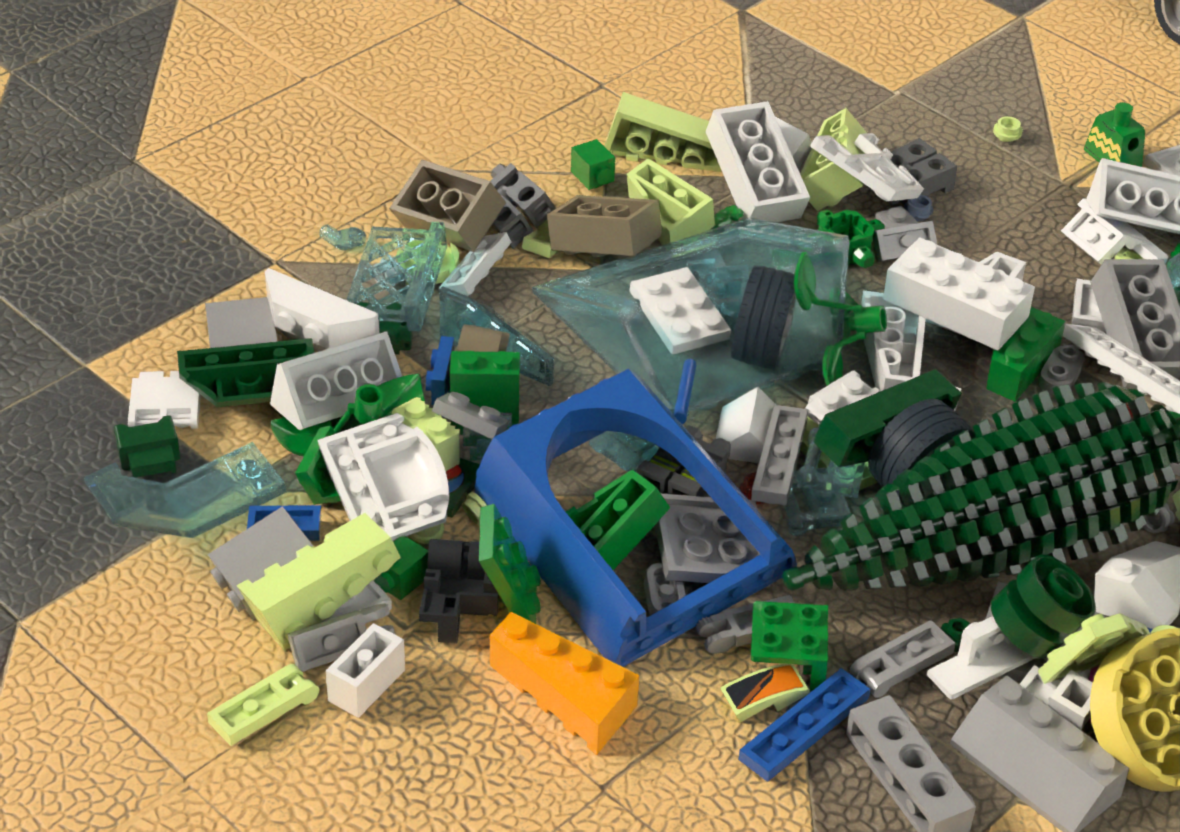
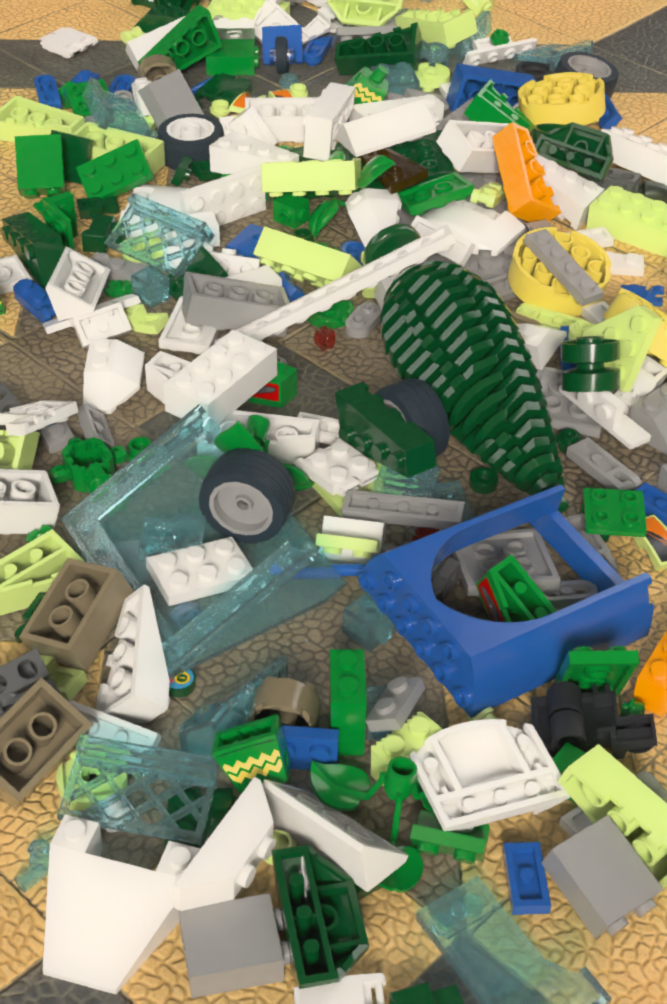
camera: 90 degrees left, 0 degrees up
(299, 257) = (105, 912): none -> white wedge
(418, 332) = (253, 751): none -> green torso
(480, 628) = (633, 708): none -> green plate
(521, 270) = (138, 672): none -> white wedge
(540, 313) = (182, 684): none -> tile
(721, 409) = (360, 547): none -> yellowish green plate
(877, 275) = (136, 446): none -> green plate
(1018, 236) = (111, 374): none -> white wedge

